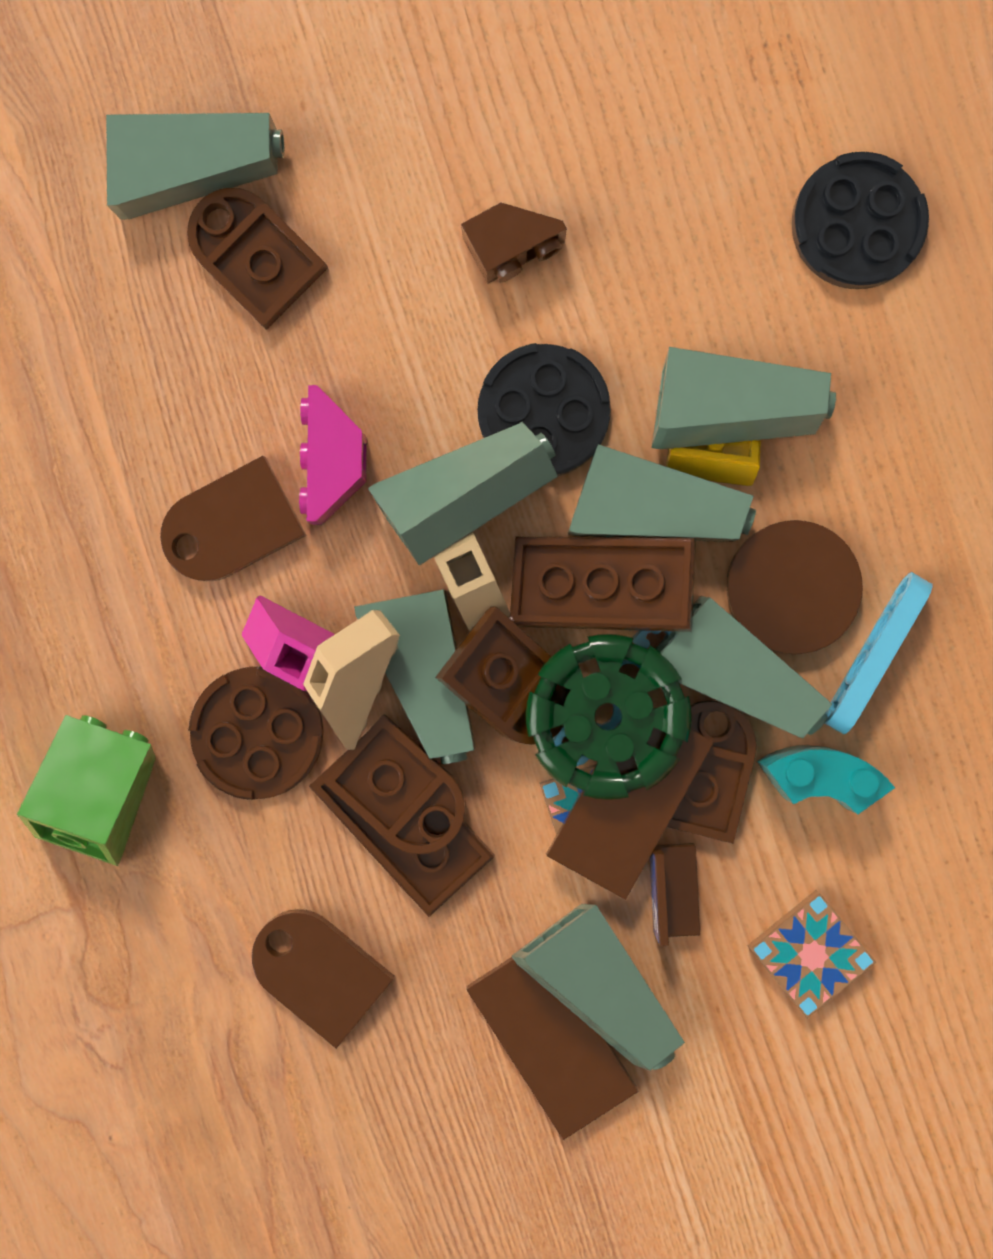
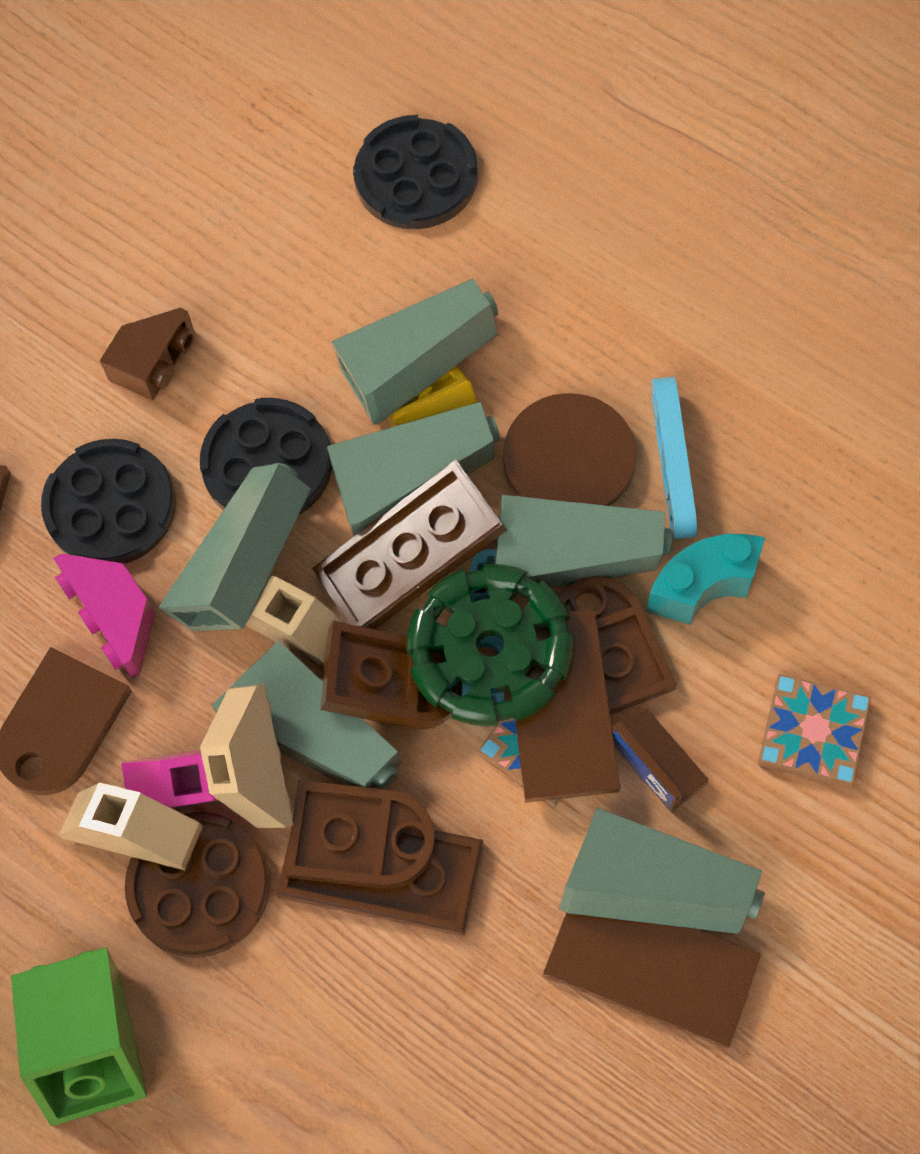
camera: 30 degrees left, 20 degrees down
(227, 661) = (131, 826): none -> tan slope
(322, 976) = (404, 1062): reddish brown tile -> none
(390, 355) = (109, 501): none -> black tile

